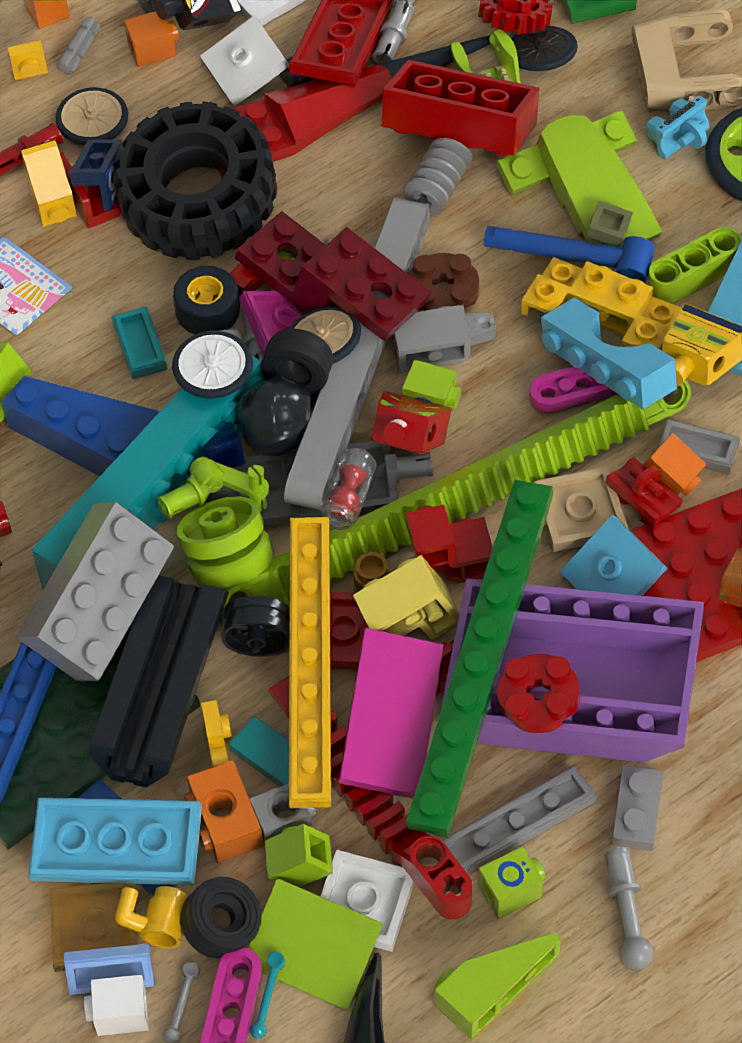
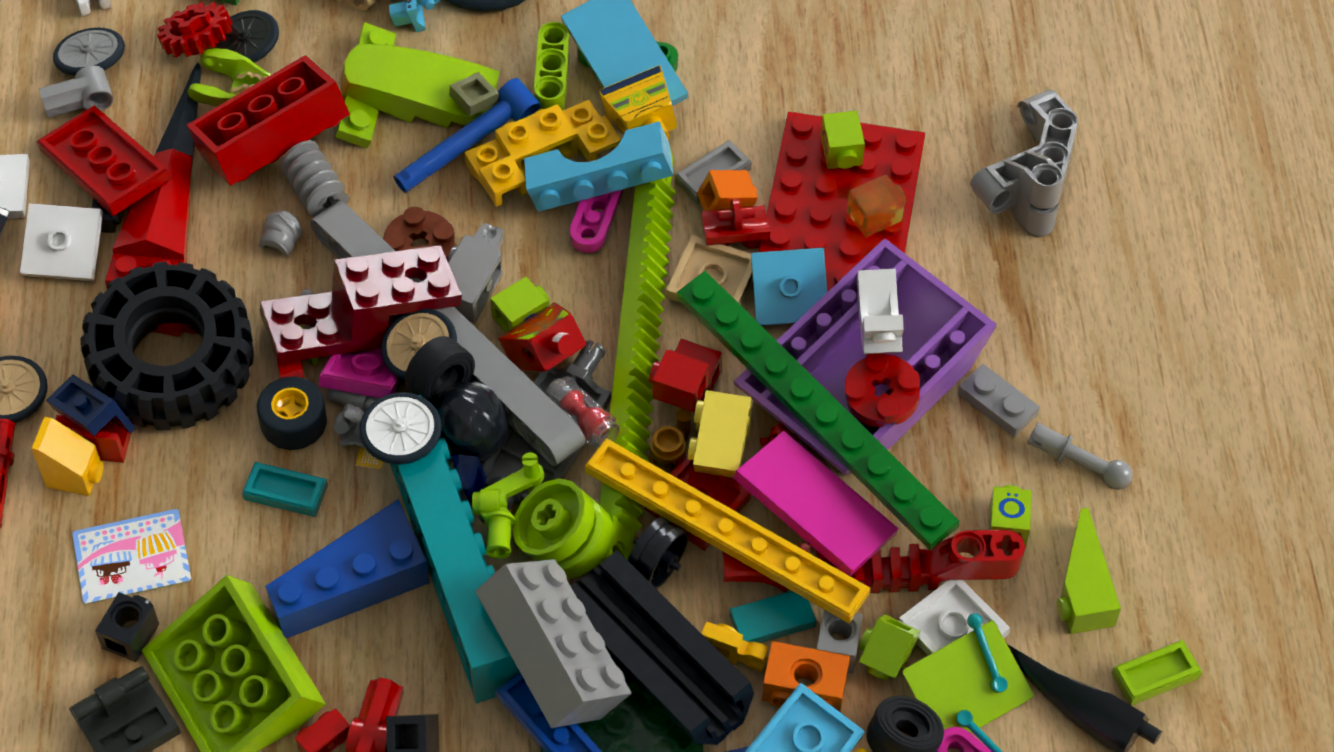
camera: 60 degrees left, 0 degrees up
(329, 968) = (998, 683): none -> teal hinge
(372, 189) = (281, 231): none -> light grey arm
(393, 32) = (131, 122): light grey pin -> none
(520, 820) = (955, 470): light grey tile -> none
(603, 642) = (878, 311): none -> white arch

